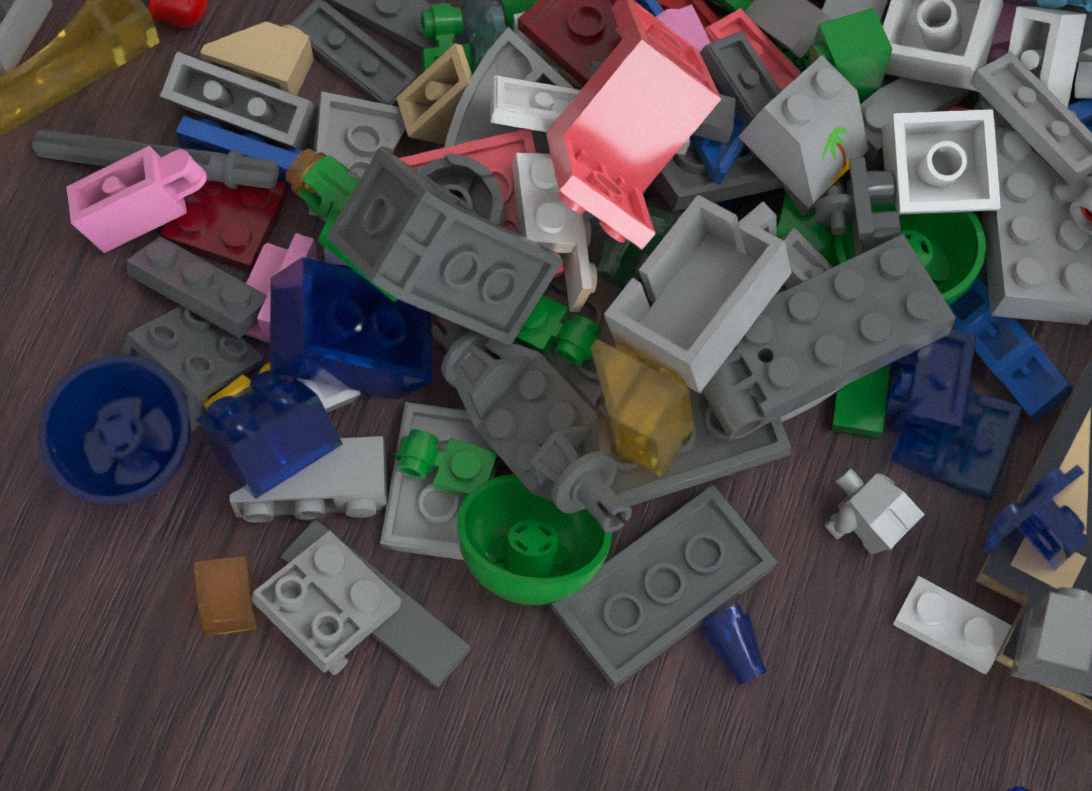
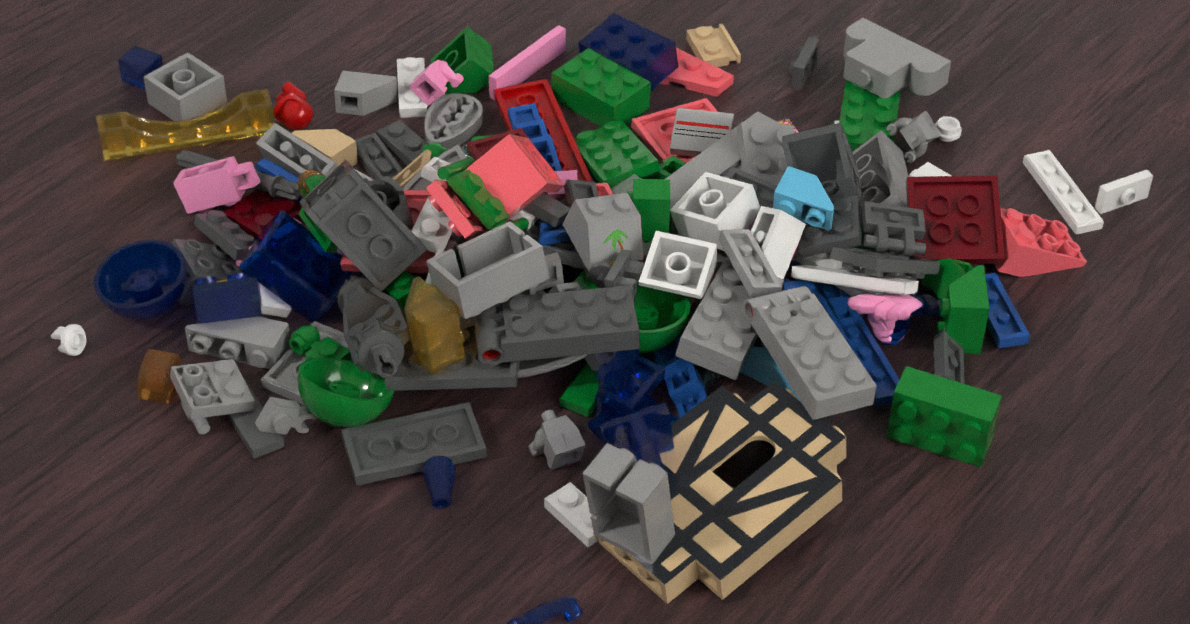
camera: 20 degrees right, 25 degrees down
(54, 571) = (72, 339): none -> white plate
(459, 619) = (281, 415): none -> light grey plate
(619, 157) = (476, 196): none -> green plate

